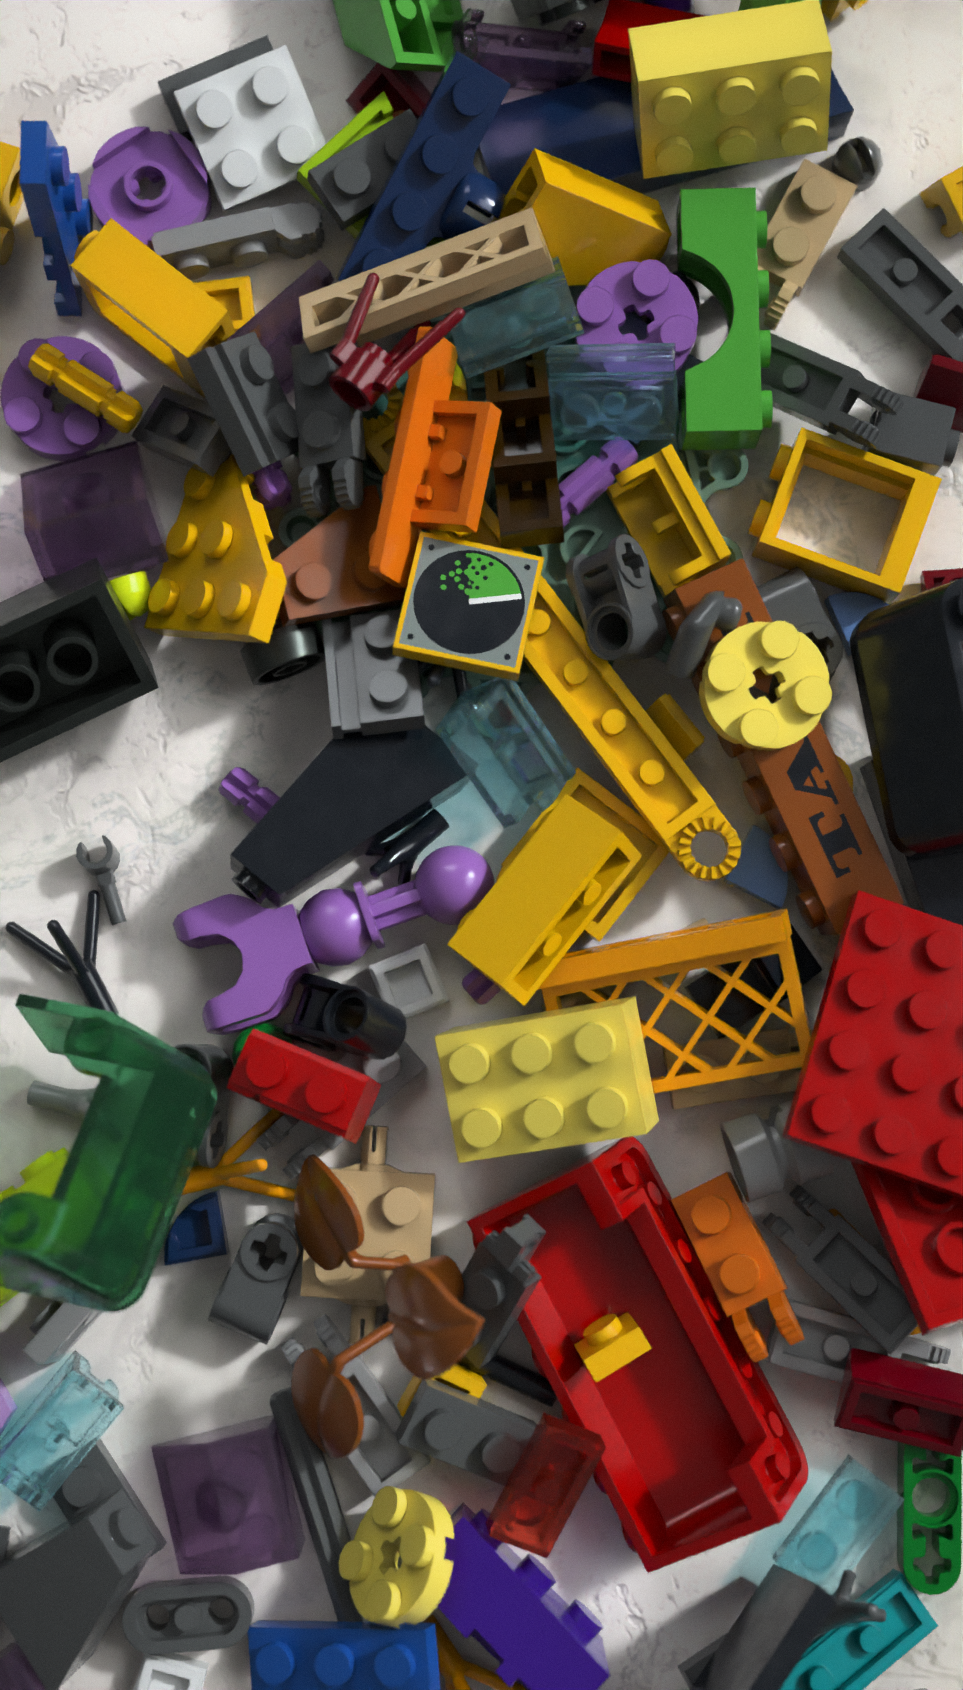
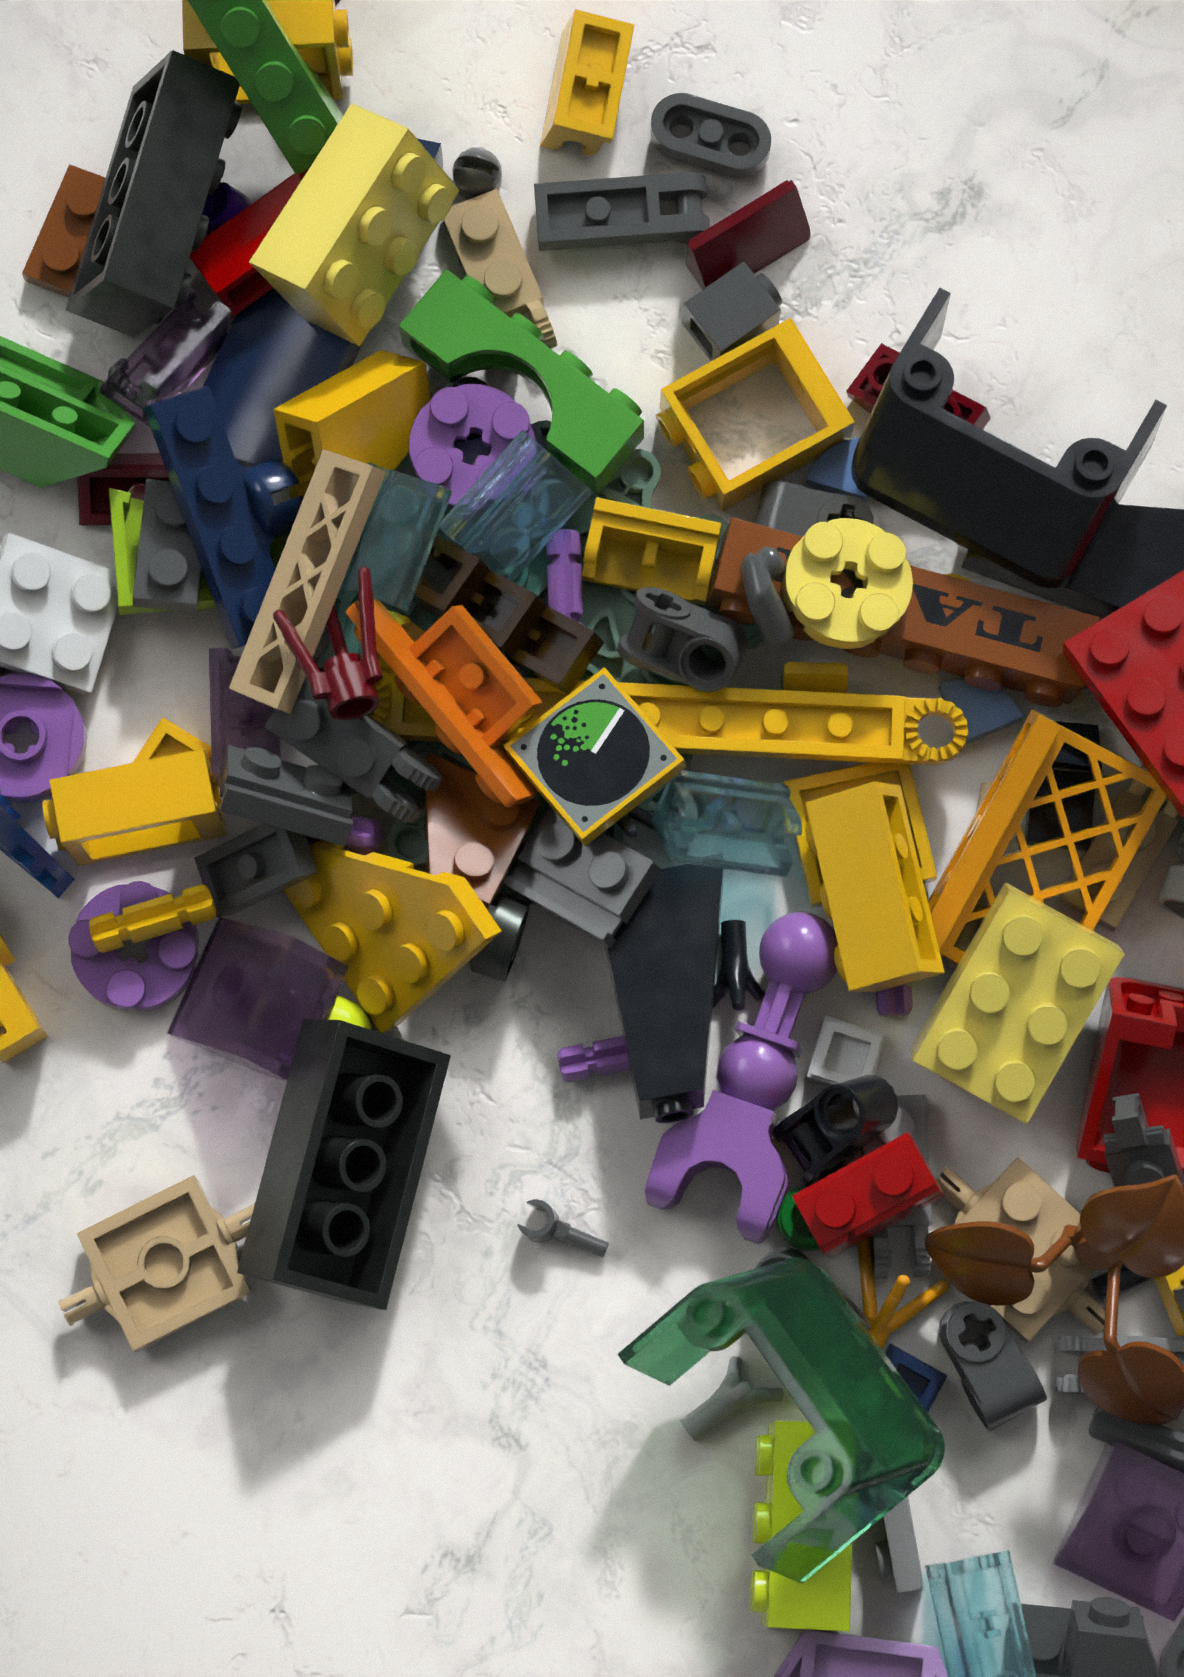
camera: 50 degrees left, 5 degrees down
(81, 970) = (620, 1306): black plant -> none
(241, 239) = (130, 696): light grey hinge -> none
(824, 391) = (647, 348): dark grey hinge -> none

